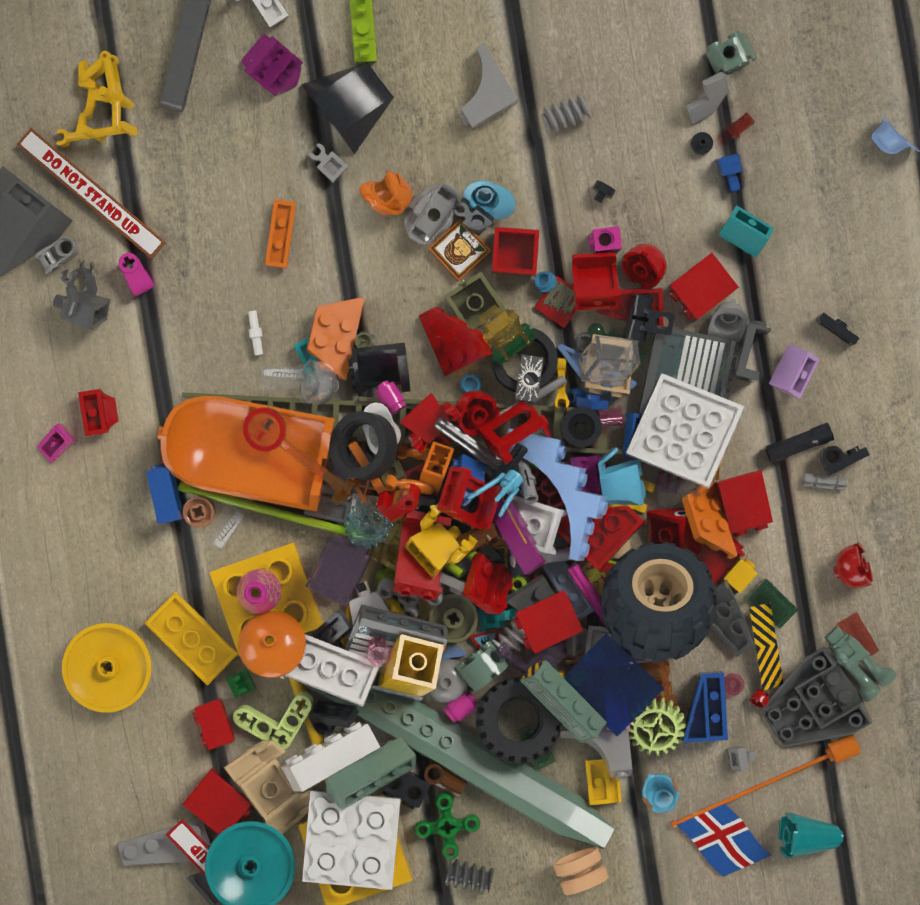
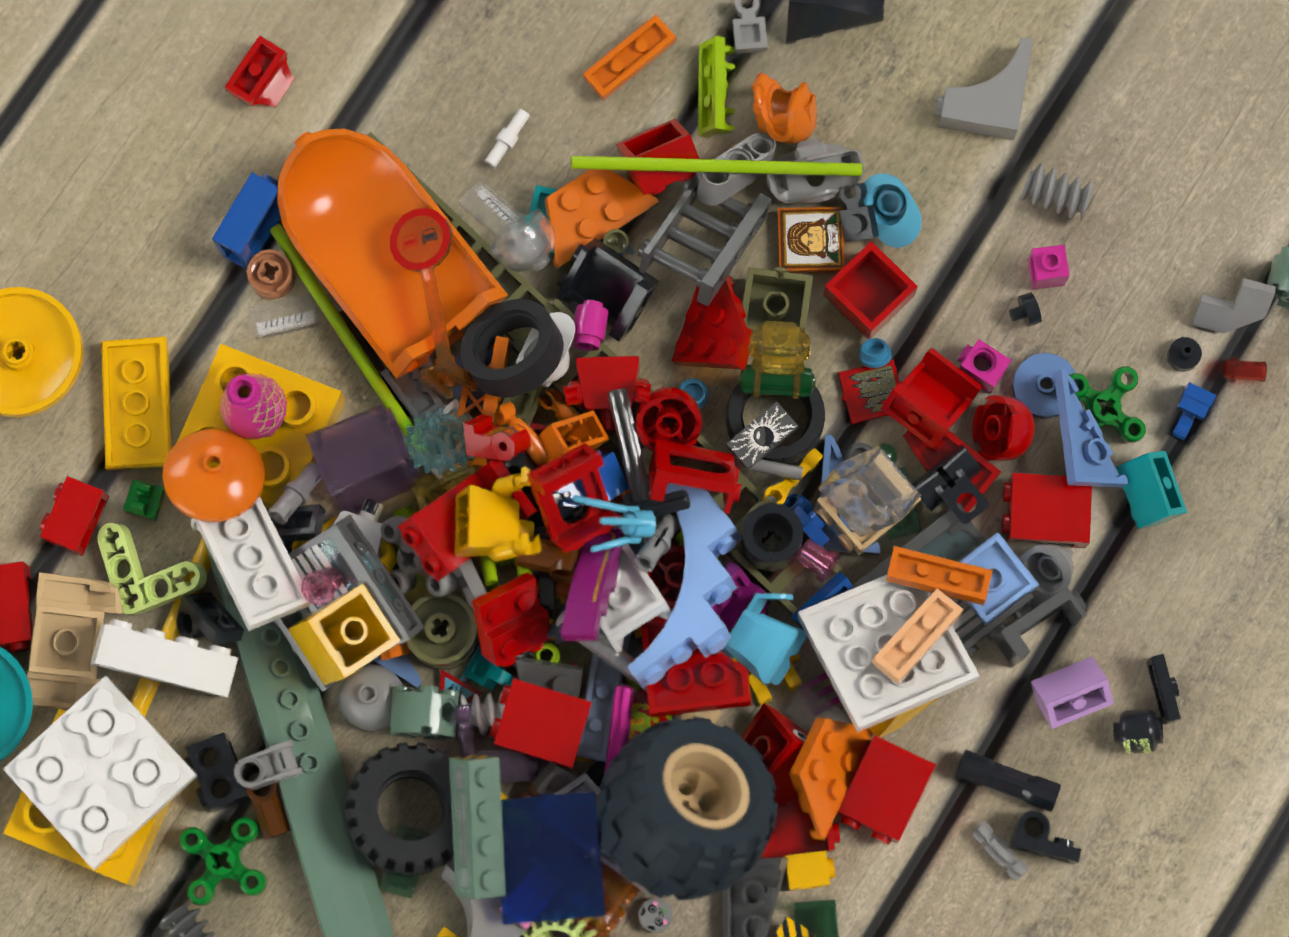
camera: 45 degrees right, 10 degrees down
(56, 442) = (189, 69): dark pink slope -> none
(320, 616) = (295, 493): none -> light grey pin
(338, 212) = (713, 87): none -> lime plate
(346, 276) = (662, 141): none -> red piece
(370, 773) = (190, 716): sand green brick -> none
(382, 258) = (715, 165): none -> lime piece
(393, 256) = (718, 187): none -> light grey beam
(426, 303) = (722, 258): none -> dark grey fence
(431, 761) = (270, 766): none -> light grey piece
(461, 707) = (360, 740): dark pink brick -> none
(595, 158) = (1048, 267): none -> dark pink brick
(633, 222) = (1027, 385): none -> medium blue plate
(679, 372) = (933, 573): none -> orange plate
(684, 665) = (655, 915): none -> light grey tile
(685, 218) = (1112, 396): none -> green gear
(695, 240) = (1083, 444): none -> medium blue wing
(697, 414) = (917, 636): none -> light nougat plate
(706, 349) = (1008, 581): none -> light blue plate
(843, 361) = (1138, 731): none -> black head

